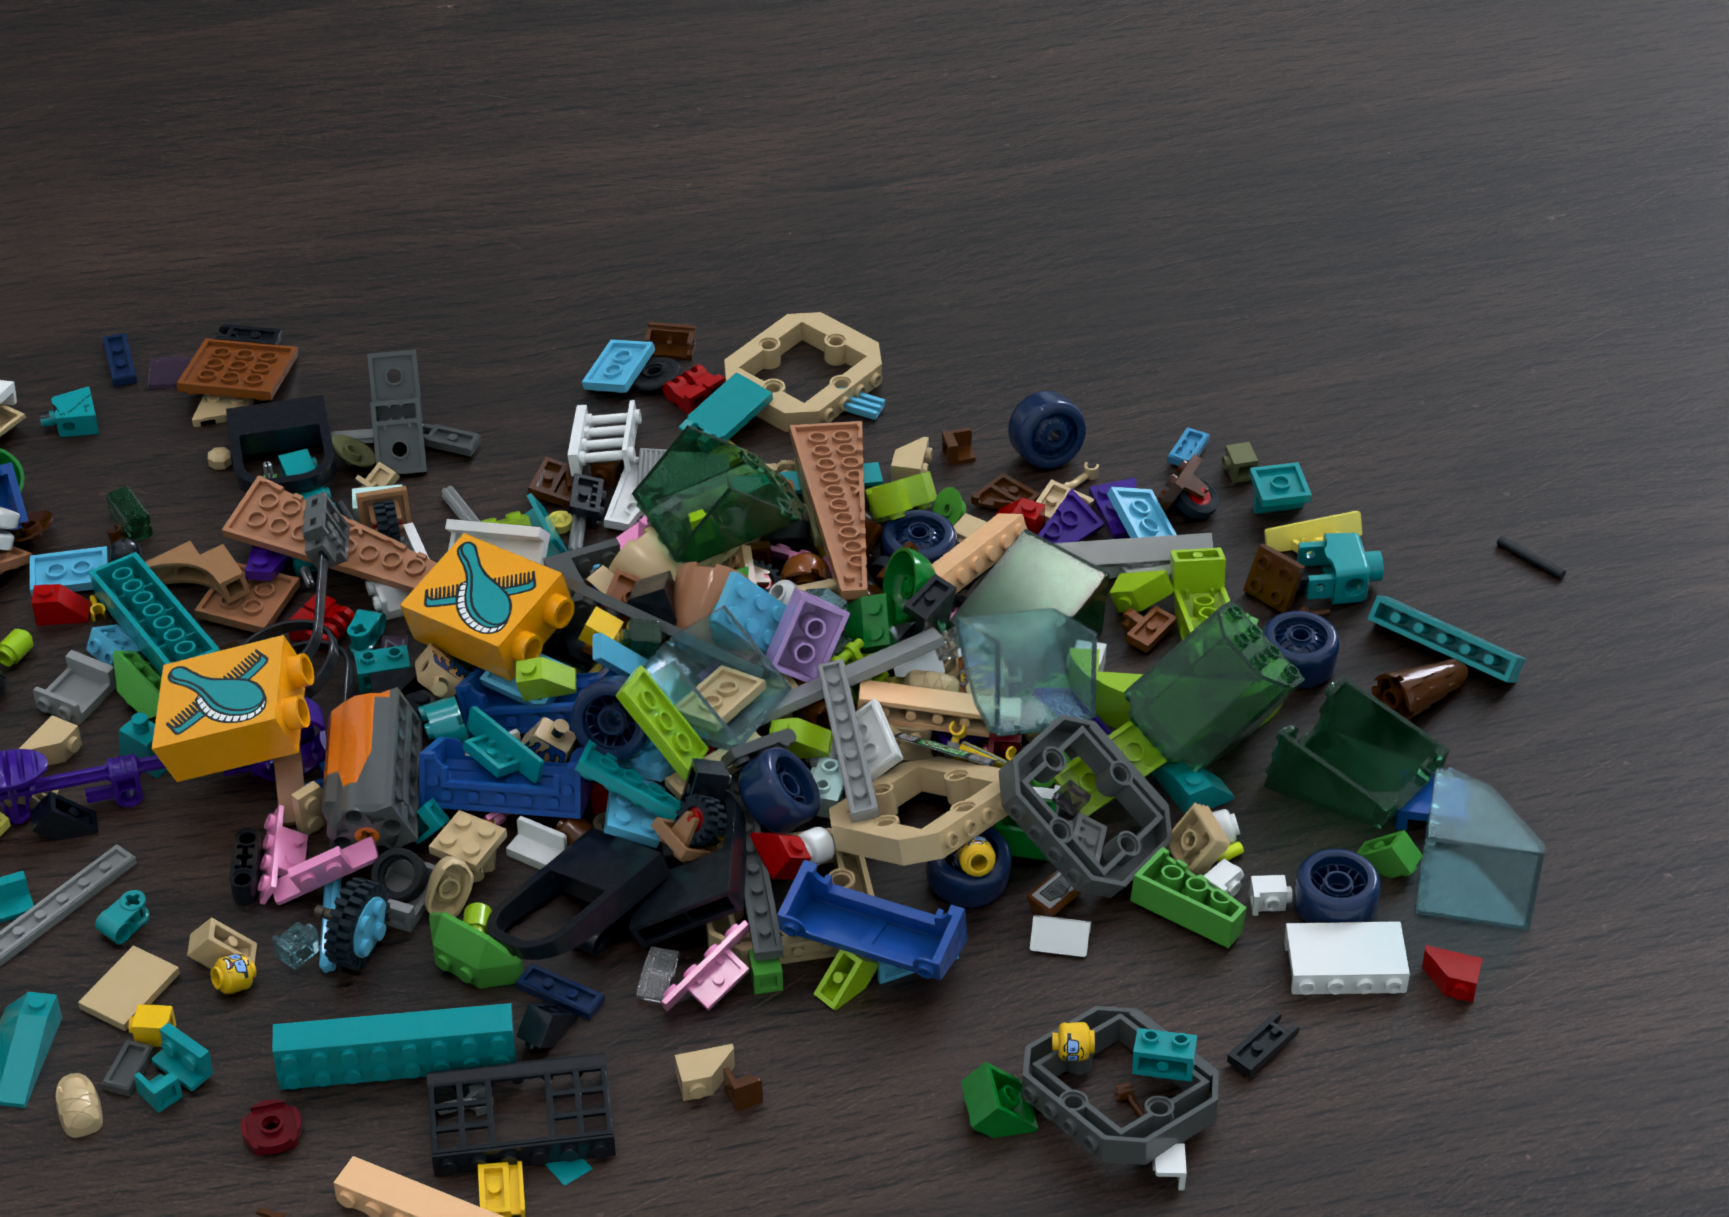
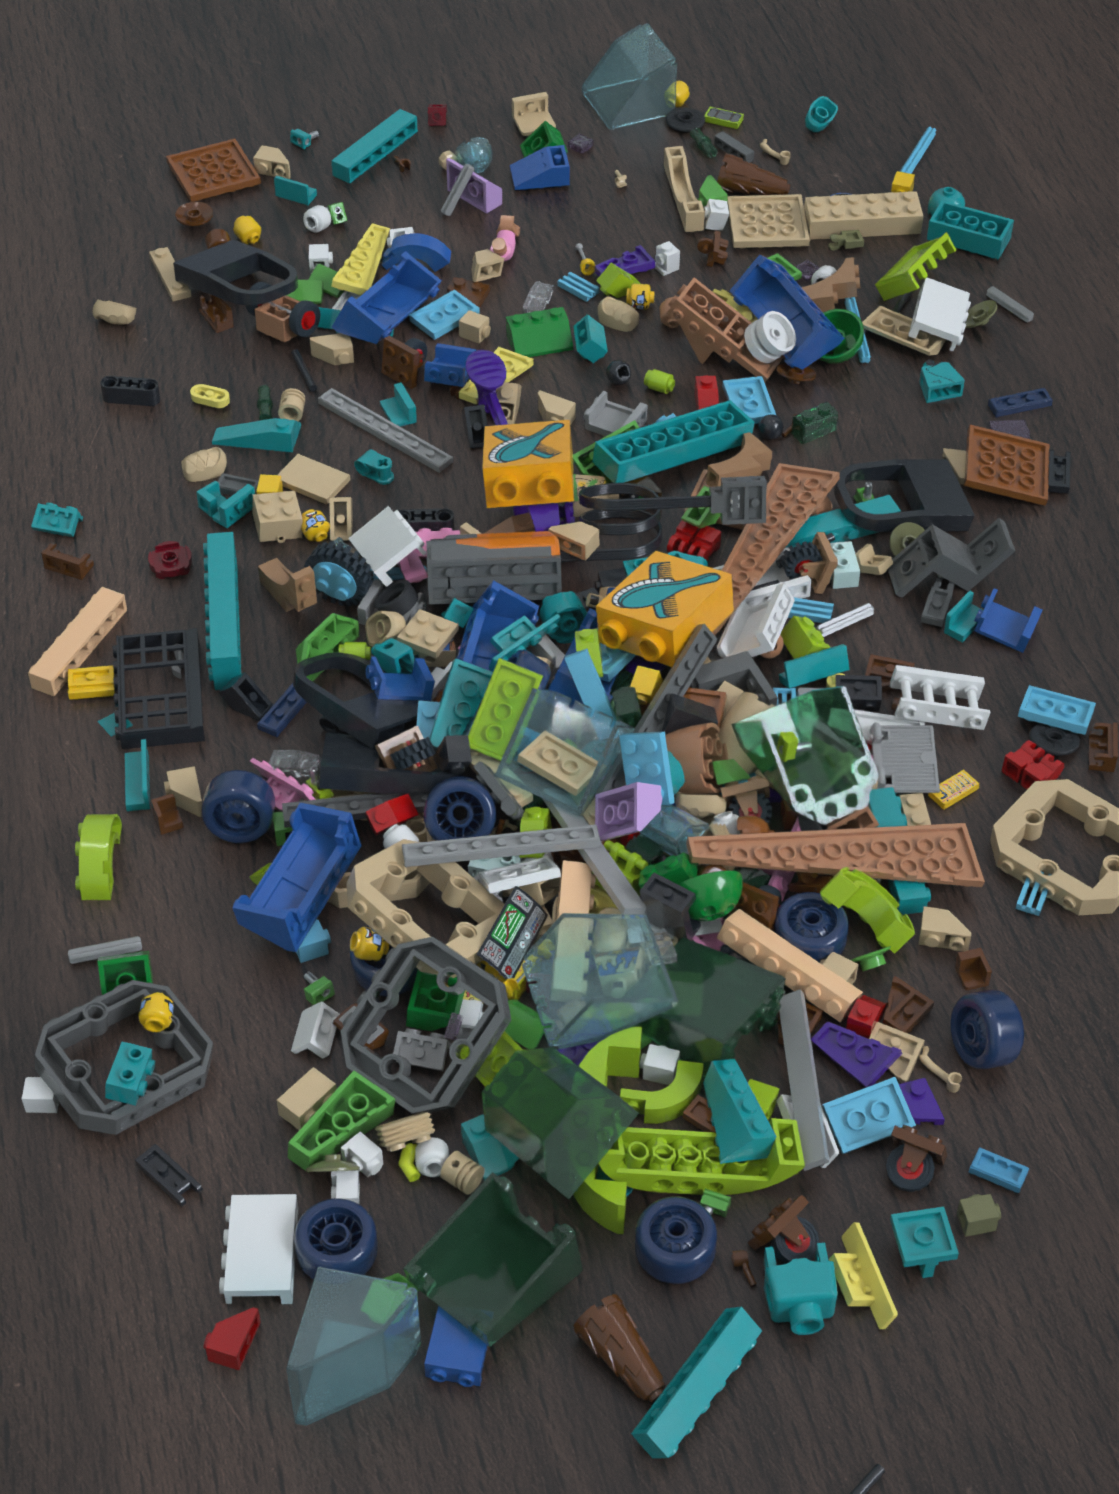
camera: 90 degrees right, 5 degrees up
(212, 1009) = (277, 516): none -> tan brick
(286, 596) = (700, 516): none -> bright green slope
(308, 875) = (386, 542): none -> white panel
(337, 688) = (577, 538): none -> tan slope
(360, 985) = (288, 588): none -> medium nougat arch
(440, 524) = (814, 610): none -> medium azure tile
(473, 421) = (961, 618): none -> teal panel
(491, 389) = (1005, 624): none -> blue panel
(501, 875) = (394, 656): none -> teal torso
(554, 854) = (401, 686): none -> blue panel
(675, 1122) = (137, 779): none -> teal panel
(720, 926) = (313, 783): none -> lime piece
(729, 407) = (989, 781): teal tile -> none
(752, 998) = (238, 806): none -> dark blue wheel
(808, 1130) = (95, 853): none -> lime brick
(950, 1134) = (104, 949): none -> light grey axle
(1004, 931) = (319, 989): none -> bright green piece
(1125, 648) = (671, 1101): none -> lime arch
(1159, 927) = (305, 1098): none -> tan brick
(1162, 592) = (738, 1119): none -> teal wedge
(1240, 800) = (464, 1173): none -> tan piece
(1253, 894) = (332, 1163): none -> olive dish

